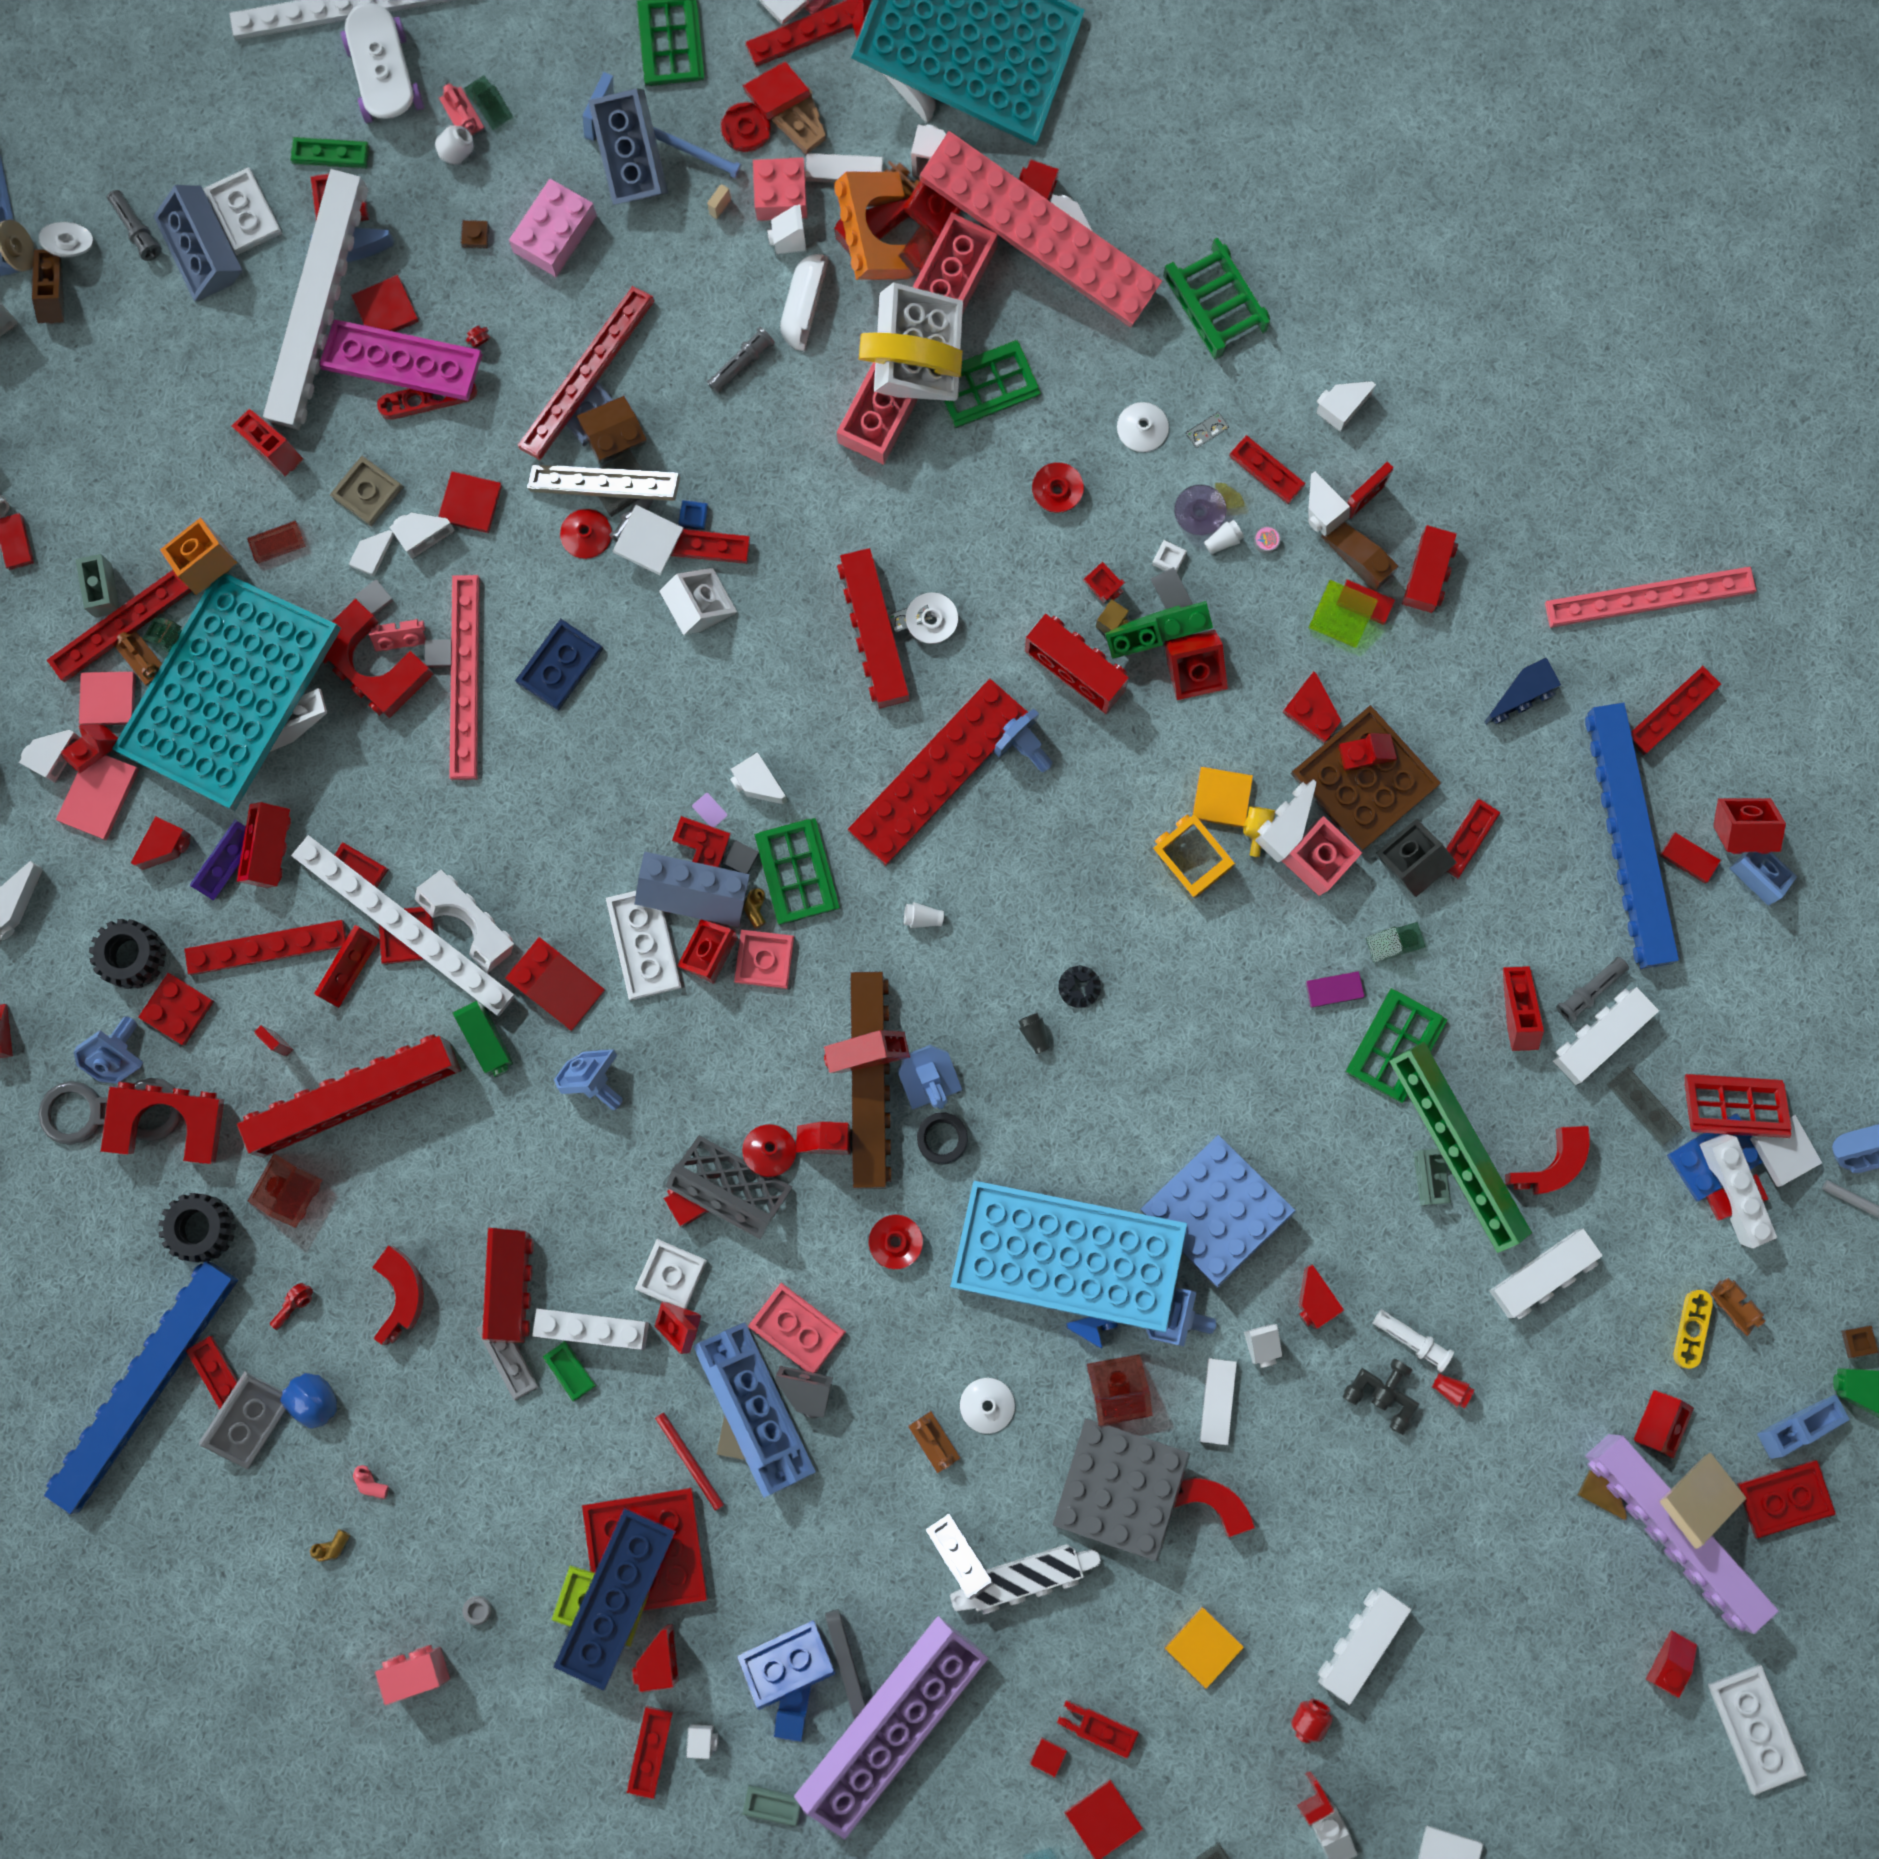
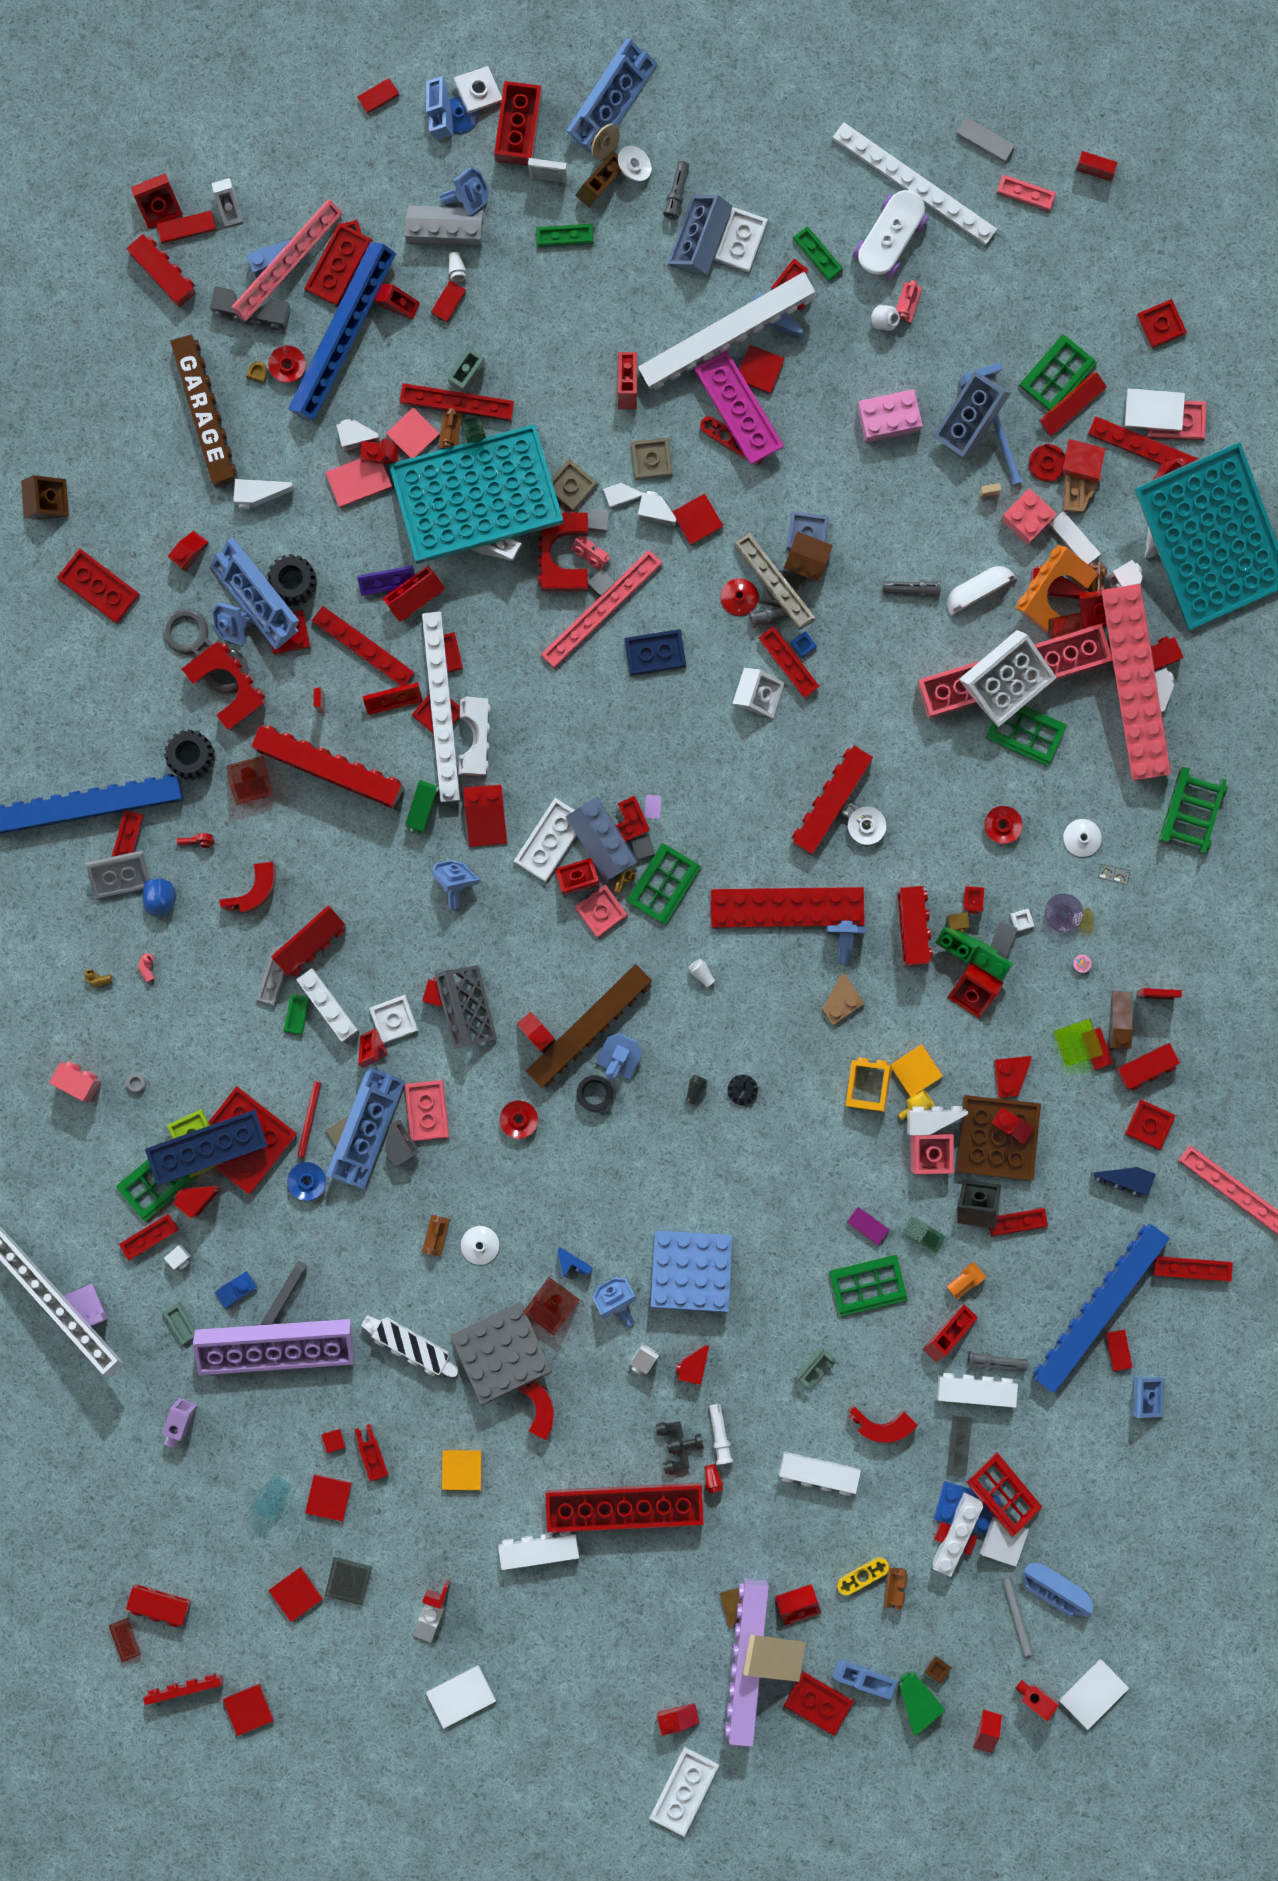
camera: 45 degrees right, 5 degrees up
(66, 371) = (564, 235): none -> green tile
(102, 1004) = (254, 594): none -> medium blue slope
(161, 844) = (364, 539): red slope -> none
(198, 556) = (531, 408): orange brick -> none
(276, 542) = (579, 438): clear red tile -> none
(315, 589) = (572, 485): none -> dark tan tile
(474, 234) = (846, 376): reddish brown plate -> none
(477, 336) = (791, 434): red plate -> none
(488, 102) = (927, 310): clear green slope -> none
(586, 373) = (826, 512): tile -> none
(624, 1703) = (160, 1201): none -> green piece
(647, 540) = (765, 635): white tile -> none
(712, 51) = (1072, 403): none -> red tile
(740, 1536) = (299, 1188): none -> blue dish
(756, 780) = (691, 816): white slope -> none
(769, 1163) = (495, 1012): red dish -> none
(786, 1665) = (255, 1265): plate -> none
(788, 231) = (1007, 544): white slope -> none
(866, 1051) = (601, 1012): slope -> none
(911, 351) = (997, 679): yellow slope -> none
(959, 1557) = (390, 1302): tile -> none
(1069, 1256) = (595, 1216): medium azure plate -> none
(1083, 804) = (842, 1000): none -> medium nougat wing
(1218, 1401) = (593, 1362): white tile -> none
(1225, 537) = (1060, 939): white cone -> none
(1267, 469) = (1122, 927): red tile -> none
(1312, 1721) = (476, 1558): red head -> none
(1326, 507) = (1128, 978): white slope -> none
(1343, 402) = (1198, 934): white slope -> none
(1400, 1510) = (624, 1507): none -> red brick
(1461, 1147) = (843, 1368): green brick -> none
(1482, 935) = (969, 1278): none -> orange piece
(1489, 621) = (1150, 1124): none -> red tile
(1749, 825) = (1163, 1365): red brick -> none

